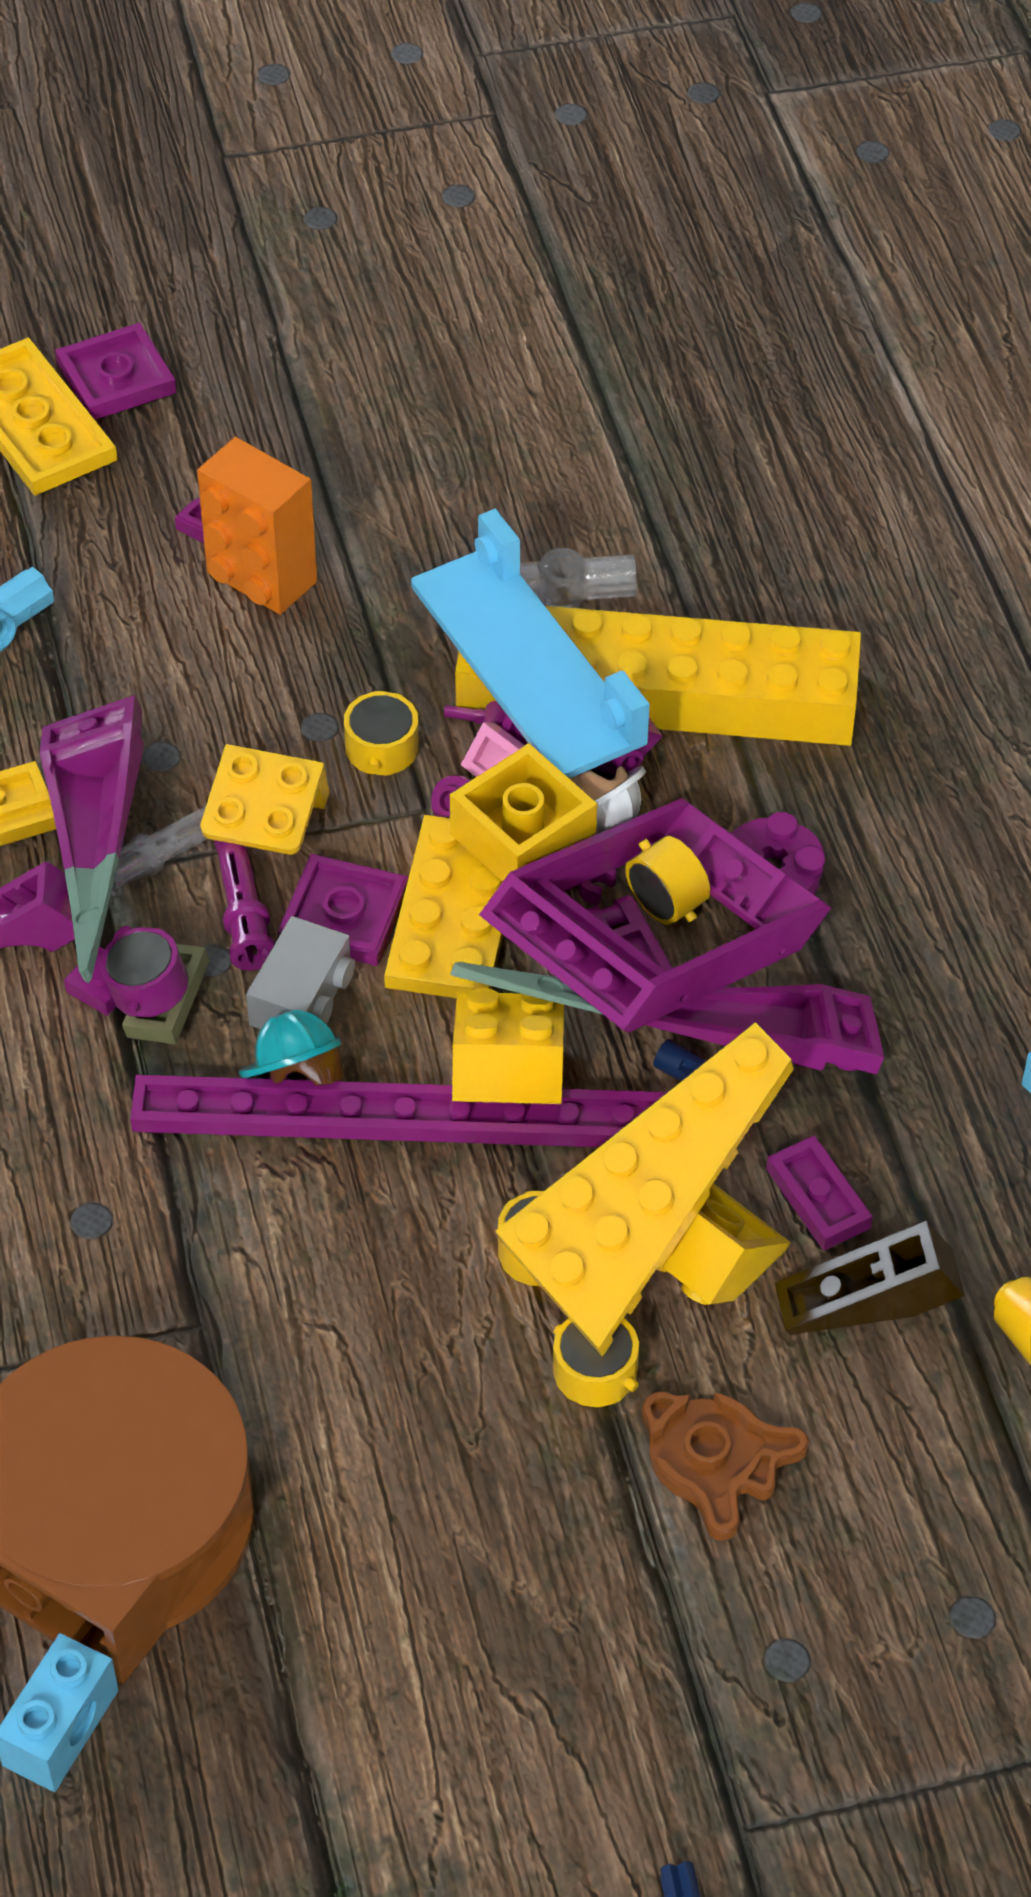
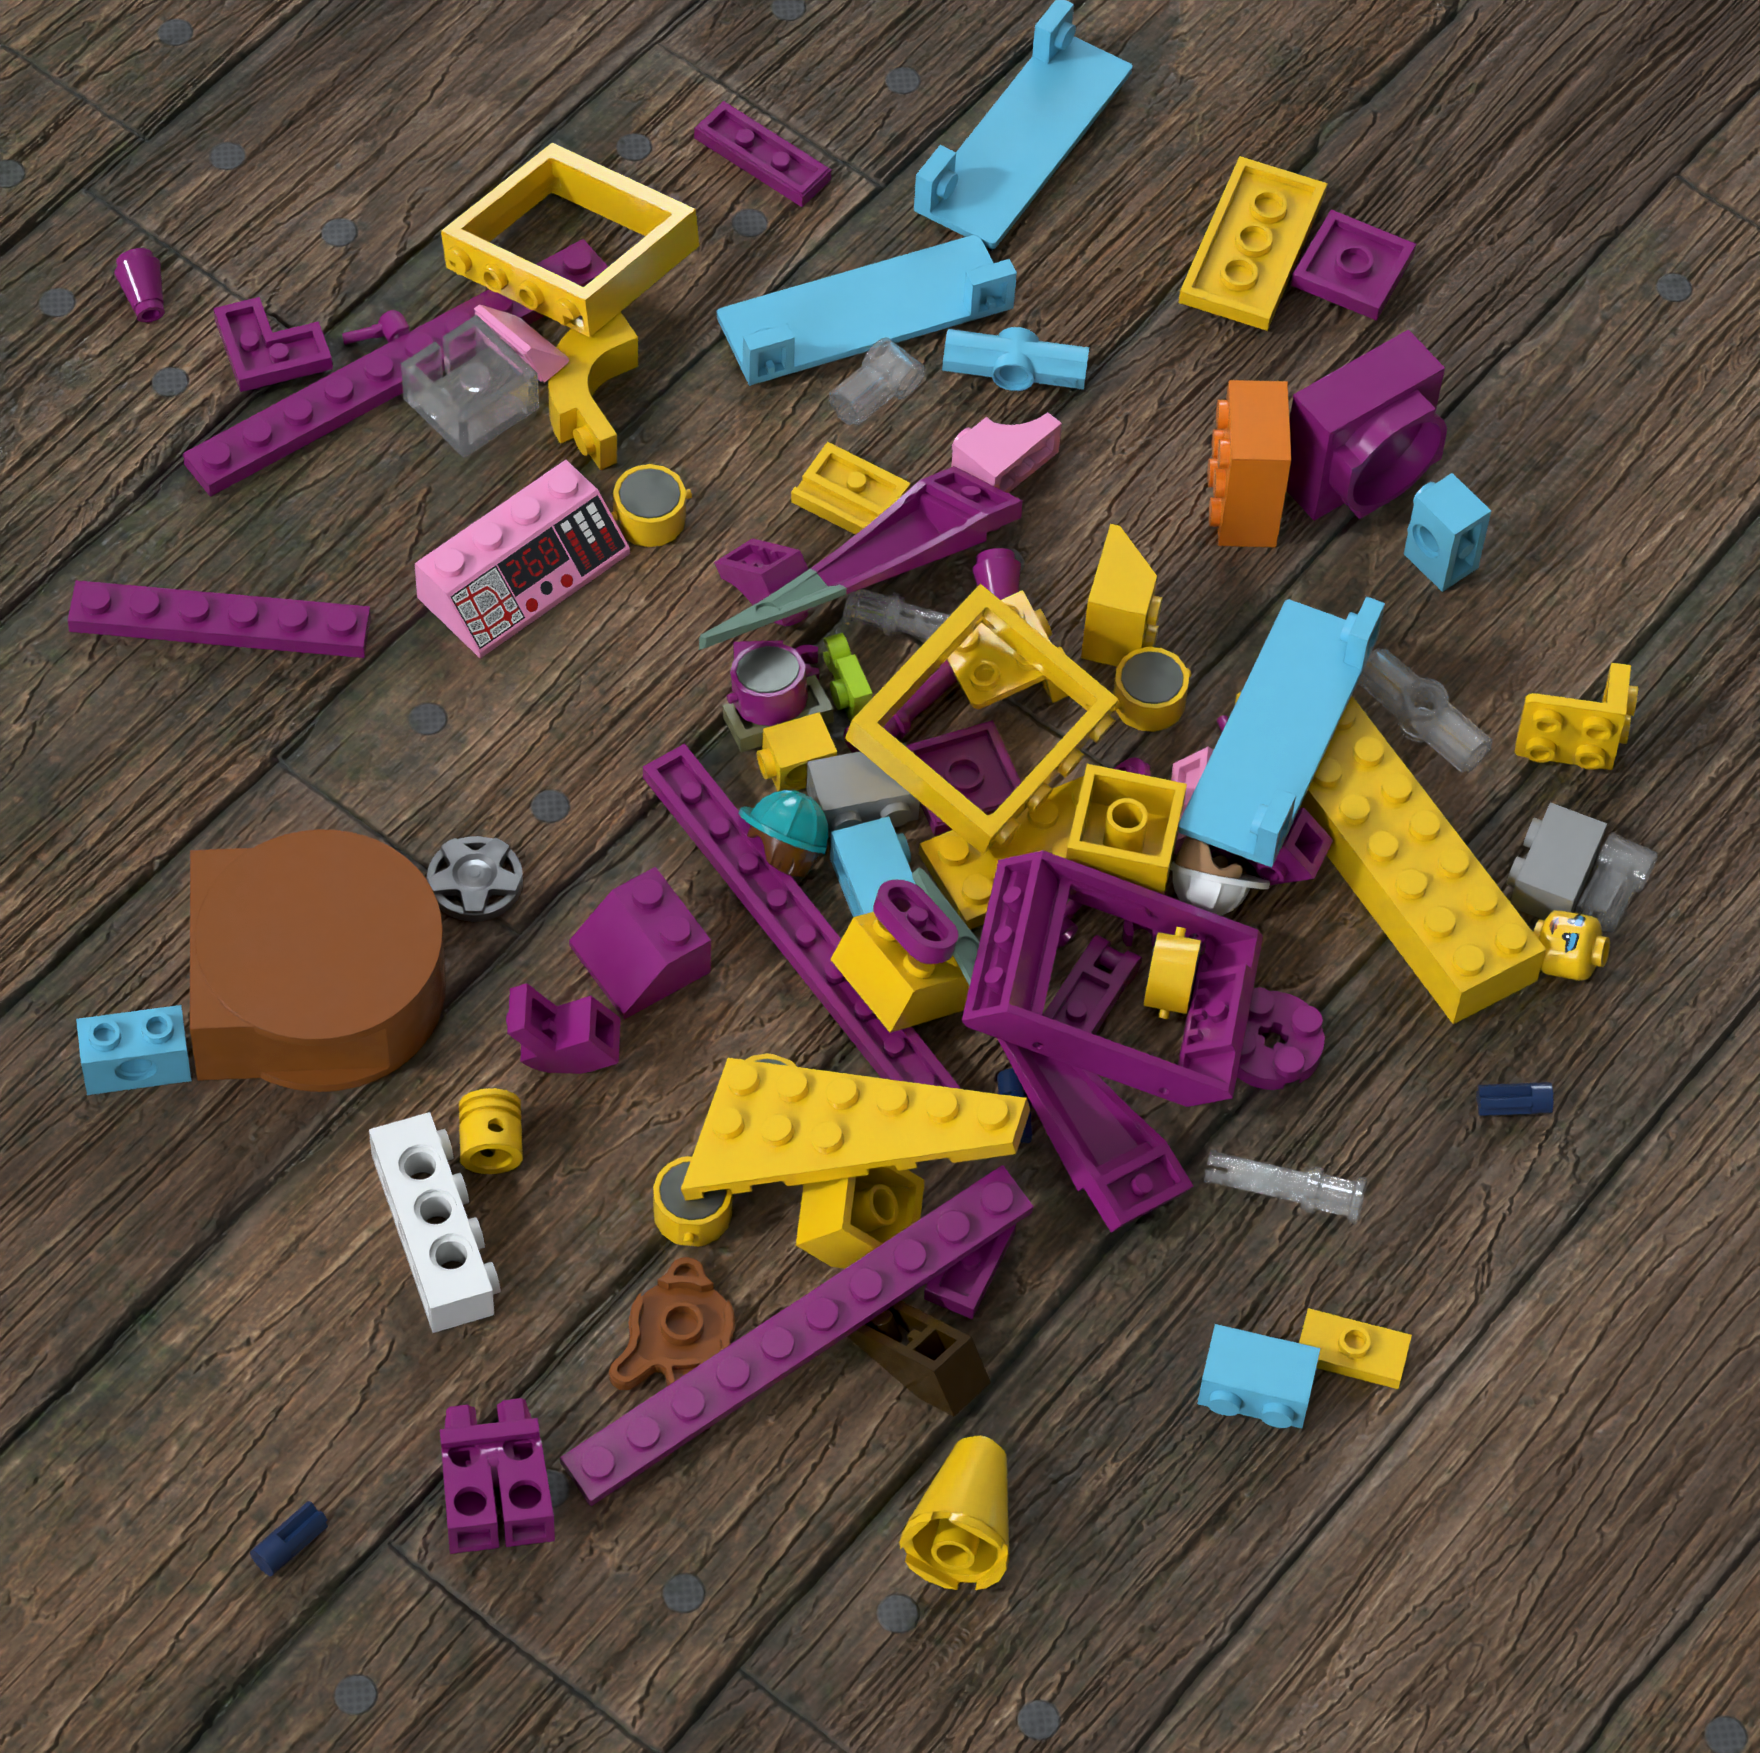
camera: 50 degrees right, 5 degrees up
(63, 684) = (1006, 453): none -> bright pink arch
(114, 1310) = (475, 877): none -> flat silver wheel
(183, 765) = (998, 572): none -> magenta cone
(183, 920) = (850, 686): none -> lime plate
(218, 1002) = (790, 747): none -> yellow brick
(293, 692) = (1121, 603): none -> yellow slope
(304, 419) = (1367, 429): none -> magenta container
(306, 1232) = (642, 944): none -> magenta slope
(340, 920) = (929, 787): none -> yellow window
(349, 1348) = (563, 1037): none -> magenta brick
(393, 1024) = (866, 858): none -> medium azure brick
(397, 1468) = (491, 1122): none -> yellow piece
(425, 459) = (1446, 531): none -> medium azure brick
(467, 1600) = (447, 1295): none -> white brick
(502, 999) = (915, 921): none -> magenta plate
(678, 492) = (1578, 729): none -> yellow bracket
(757, 1690) = (495, 1457): none -> magenta hips
(774, 584) = (1558, 861): none -> light grey brick
(801, 1371) = (795, 1335): none -> magenta plate
(816, 560) = (1619, 874): none -> clear piece
(858, 613) = (1572, 944): none -> yellow head
(937, 921) = (1311, 1189): none -> clear pin
(957, 746) = (1515, 1099): none -> dark blue piece

